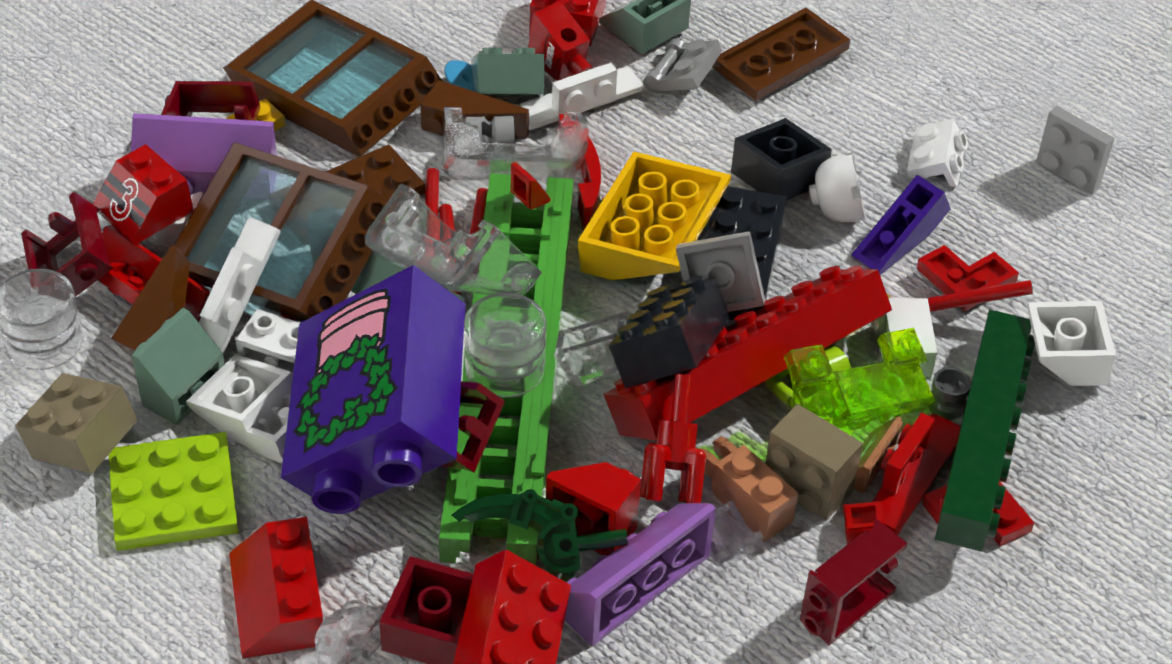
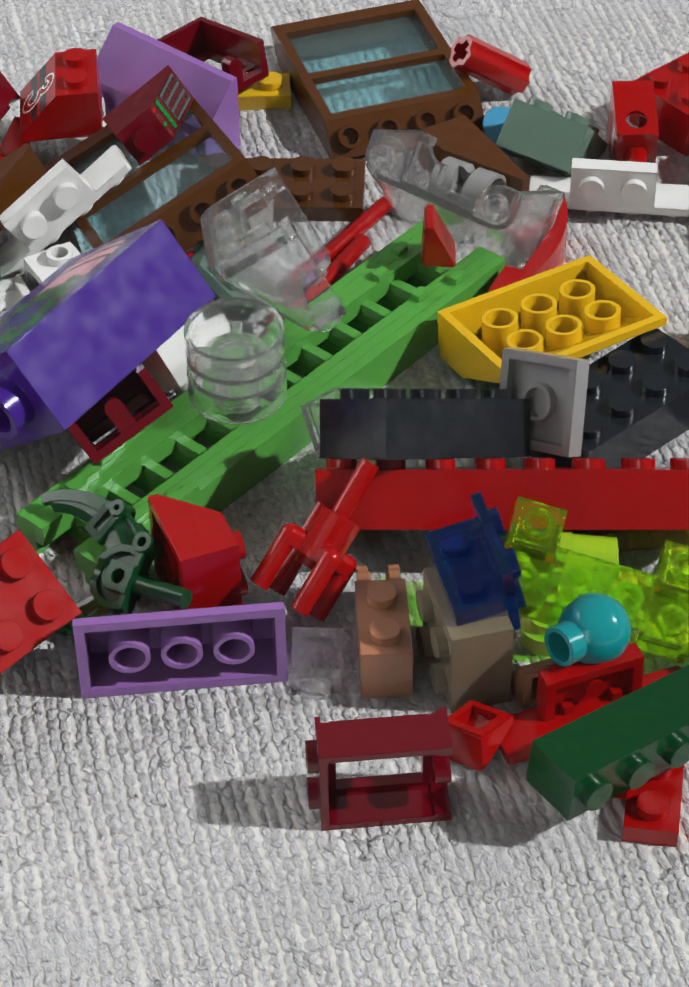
camera: 40 degrees right, 5 degrees down
(251, 183) = (151, 115): none -> dark red slope
(415, 32) = (490, 64): none -> red axle
(816, 410) = (476, 567): none -> clear blue bracket
(898, 419) = (589, 631): none -> teal piece

